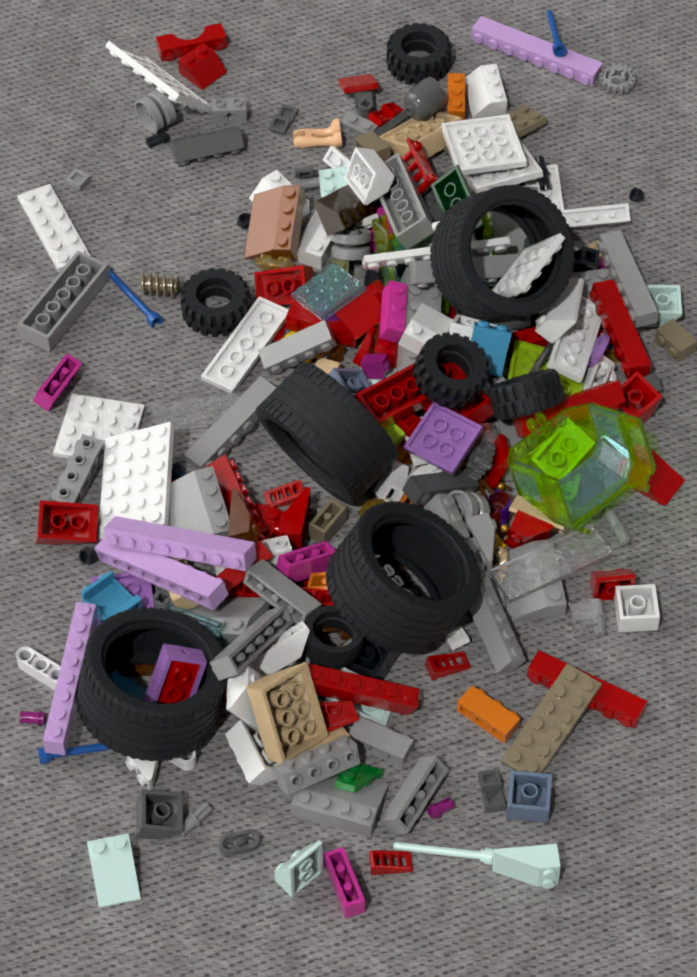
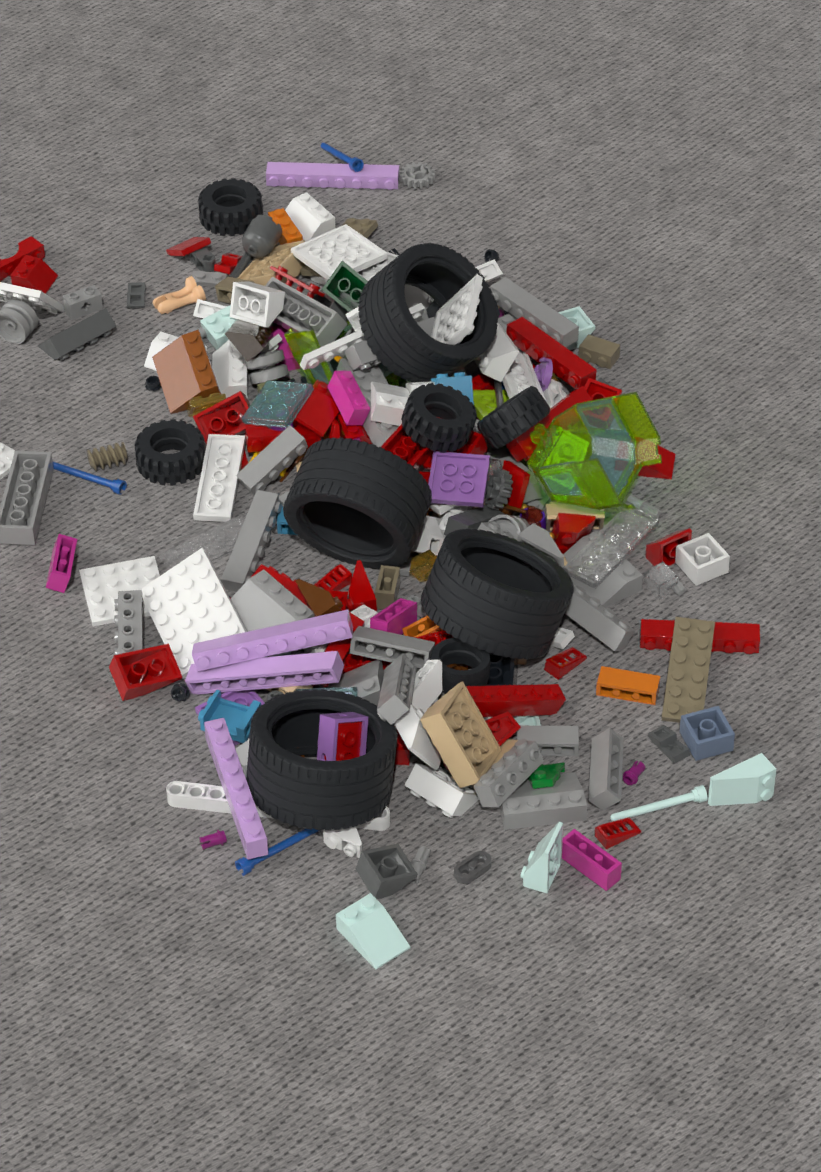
camera: 25 degrees left, 10 degrees down
(156, 139) = (29, 344): black pin -> none
(304, 171) = (185, 326): dark grey slope -> none

